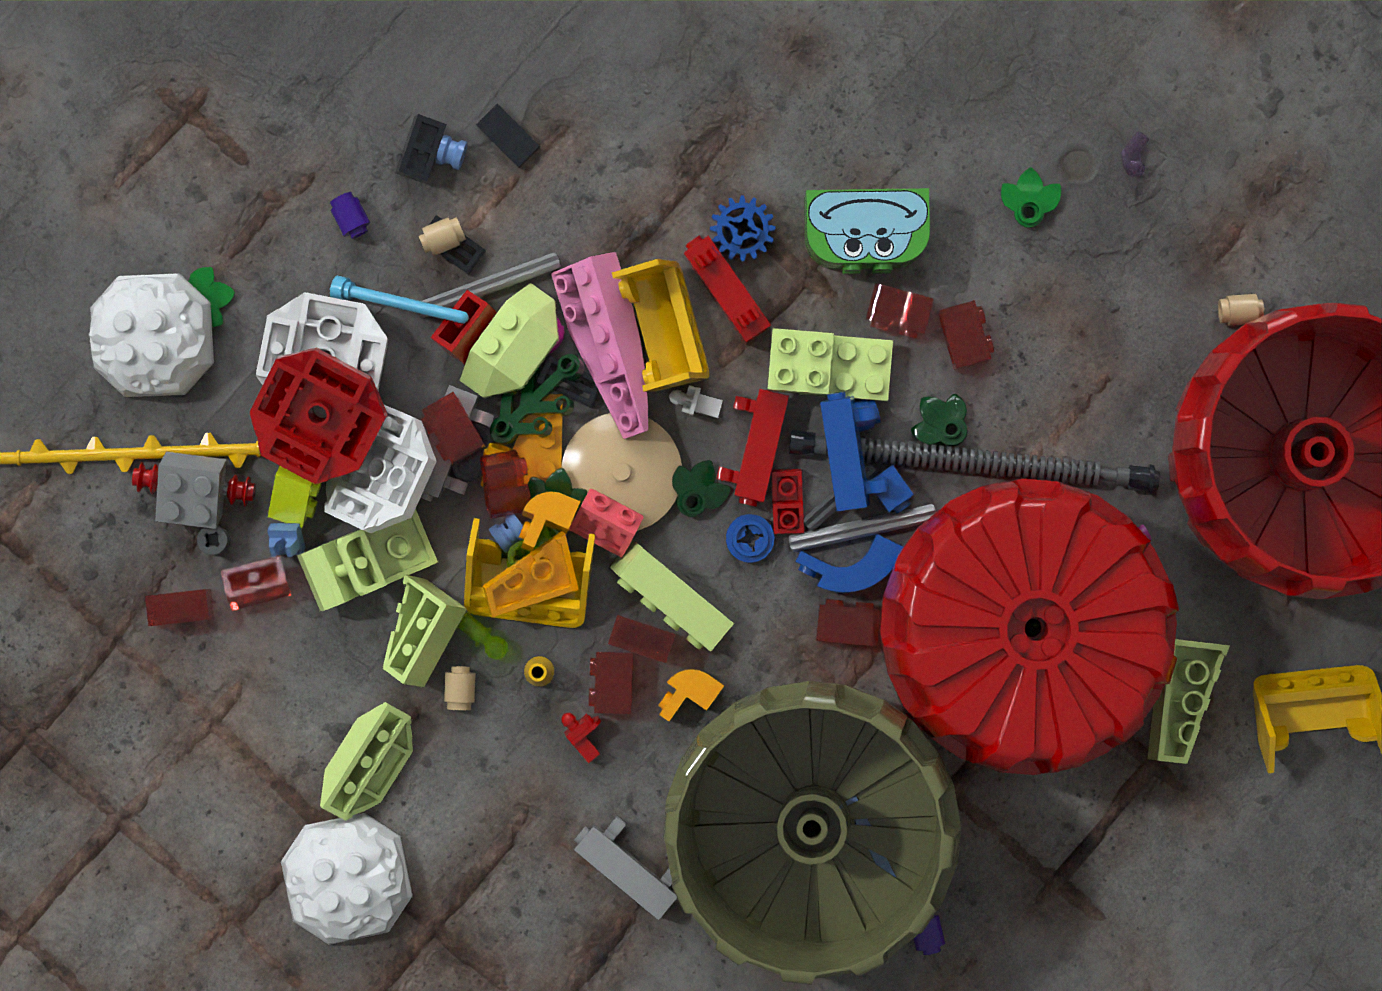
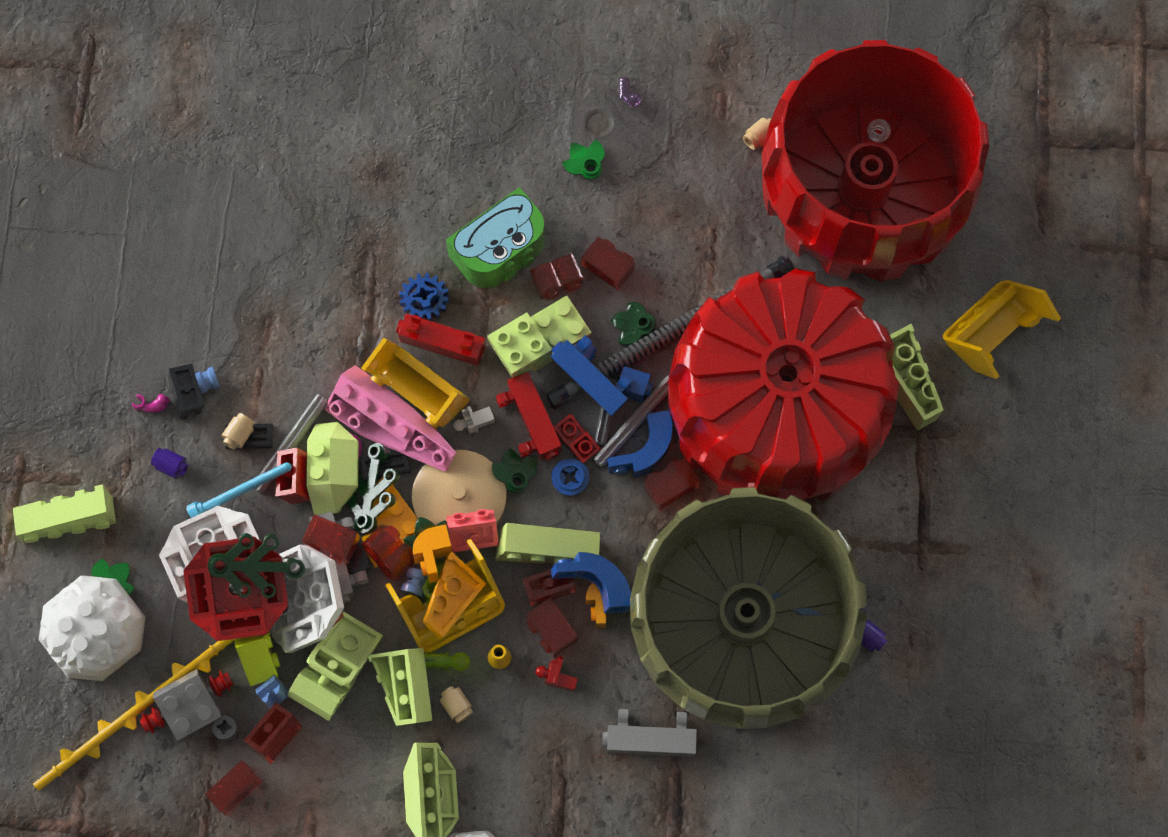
camera: 35 degrees left, 15 degrees down
(203, 193) = (65, 515): none -> yellowish green wedge
(348, 408) = (252, 565): none -> dark green plant
(378, 140) = (154, 407): none -> dark pink arm
(507, 135) = (236, 347): black tile -> none
(703, 680) = (603, 574): none -> blue arch
(1363, 423) = (881, 125): none -> clear plate

